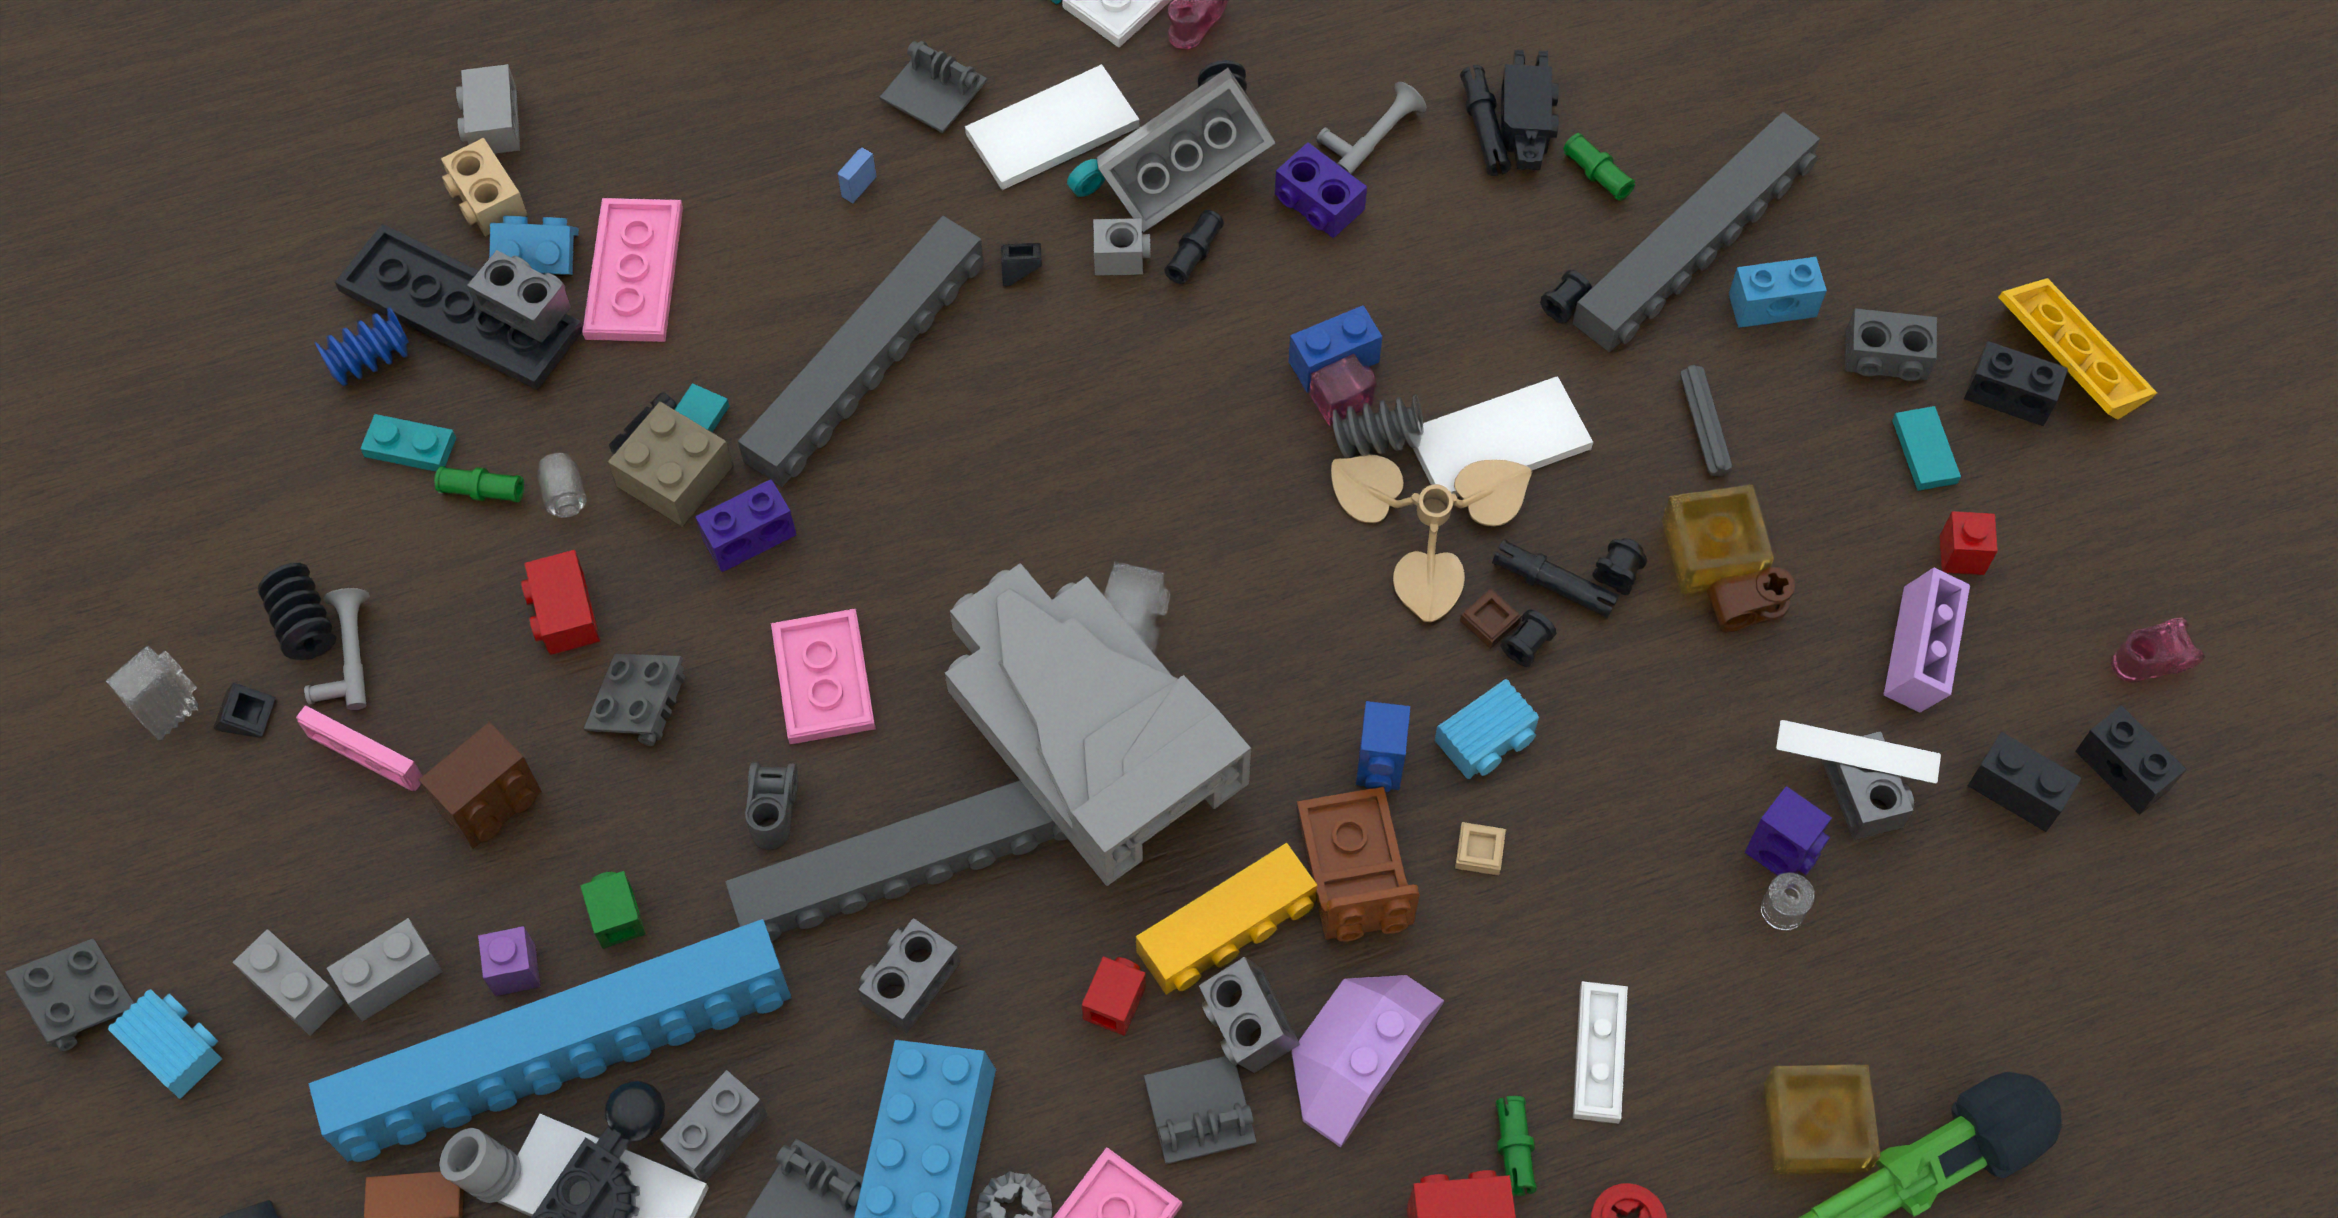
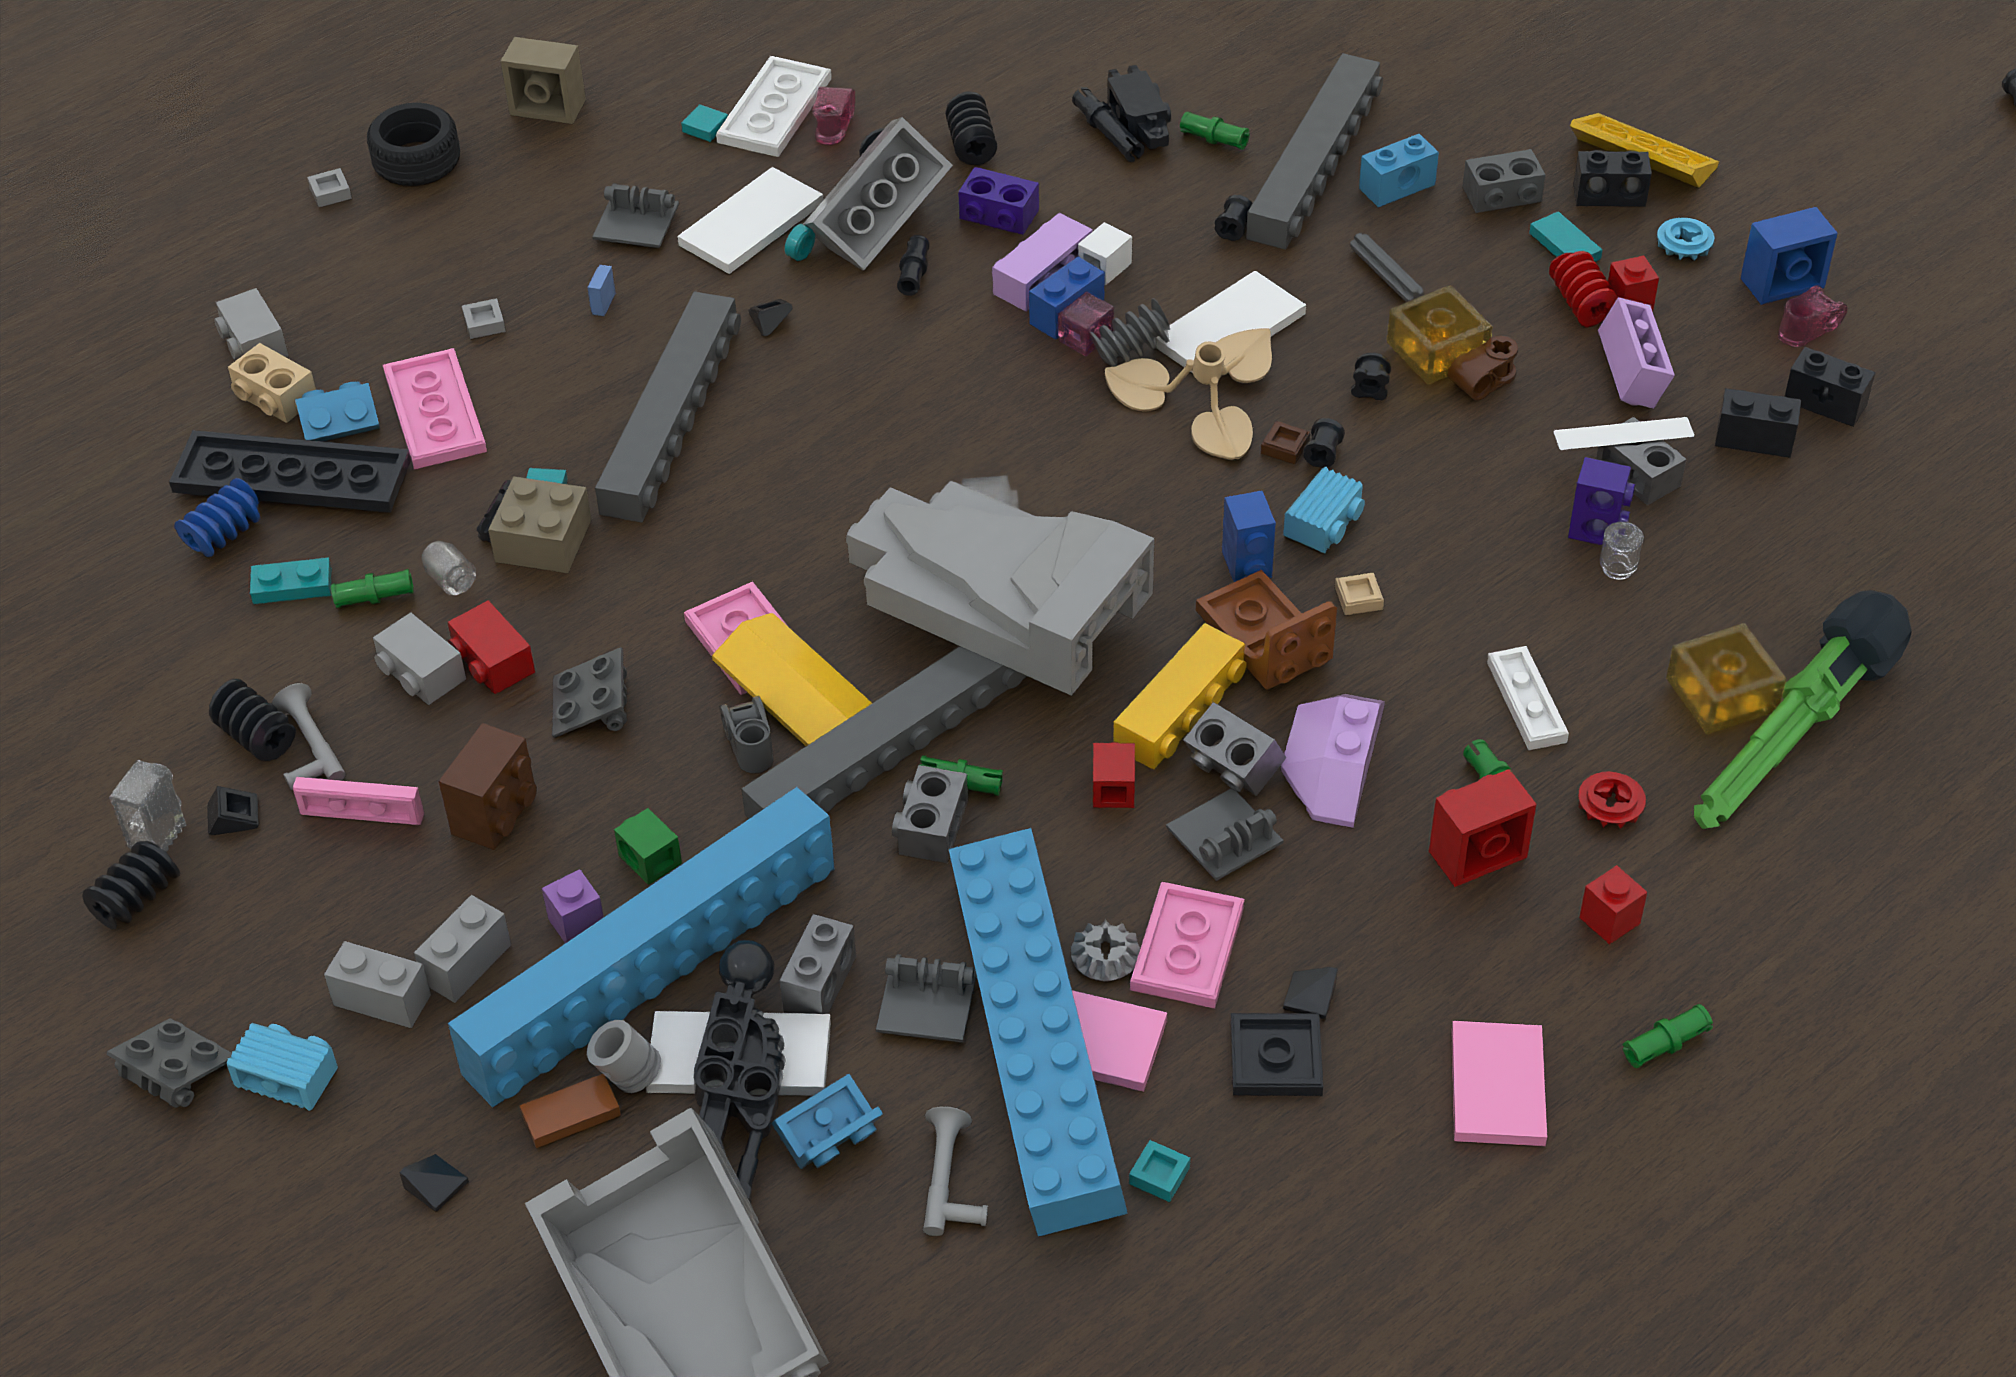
camera: 20 degrees left, 15 degrees down
(110, 771) = (128, 882): none -> black piece
(486, 591) = (419, 659): none -> light grey brick
(517, 300) = (348, 440): flat silver brick -> none
(727, 168) = (483, 318): none -> light grey tile
(746, 525) = (629, 548): dark purple brick -> none
(841, 753) = (788, 677): none -> yellow slope
(962, 934) = (978, 778): none -> green pin
(1110, 235) = (851, 279): light grey brick -> none
(1331, 82) = (971, 128): none -> black piece
(1332, 286) = (1037, 259): none -> lavender brick
(1352, 156) = (1039, 125): light grey piece -> none
(1404, 300) = (1107, 250): none -> white brick
(1555, 578) = (1321, 399): black pin -> none
(1912, 525) = (1583, 286): none -> red piece
(2078, 481) = (1697, 237): none -> medium azure gear
(2166, 565) = (1788, 255): none -> blue brick

